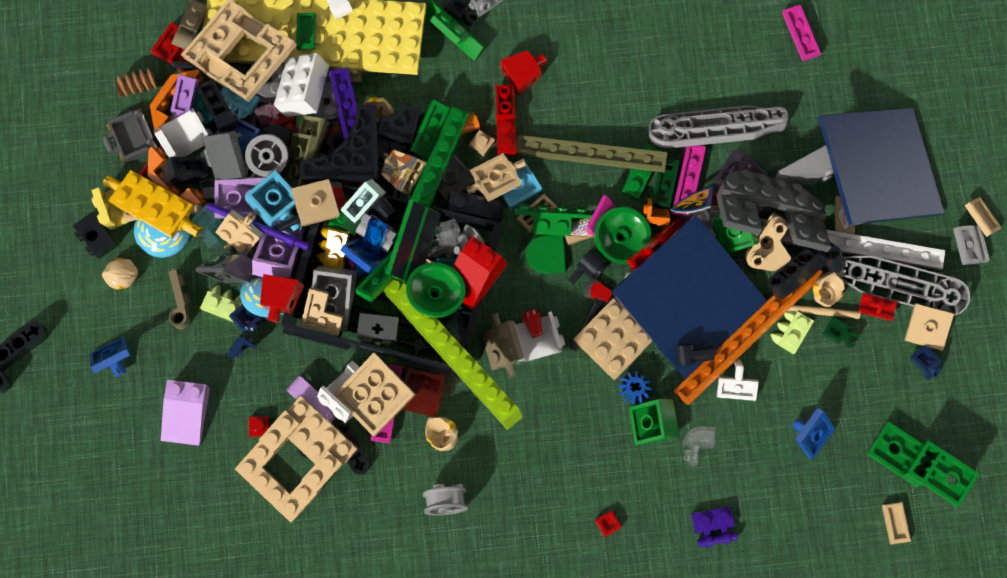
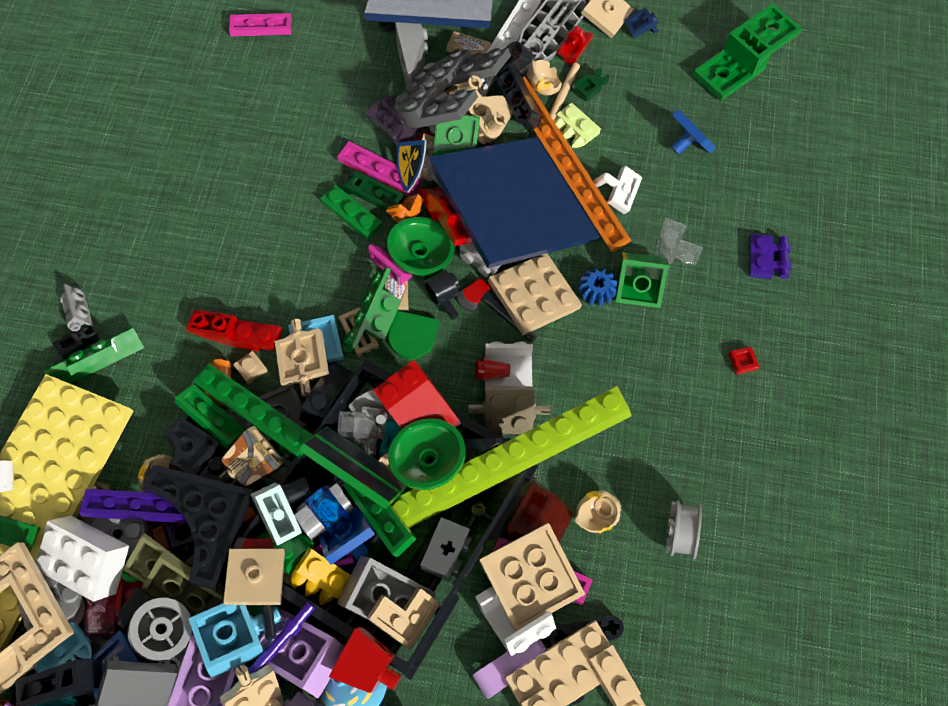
camera: 75 degrees left, 10 degrees down
(522, 70) = (179, 295): red torso -> none
(591, 153) = (312, 251): olive plate -> none
(689, 353) = (578, 215): black piece -> none
(716, 126) = (329, 127): light grey beam -> none
(896, 523) = (796, 97): tan tile -> none

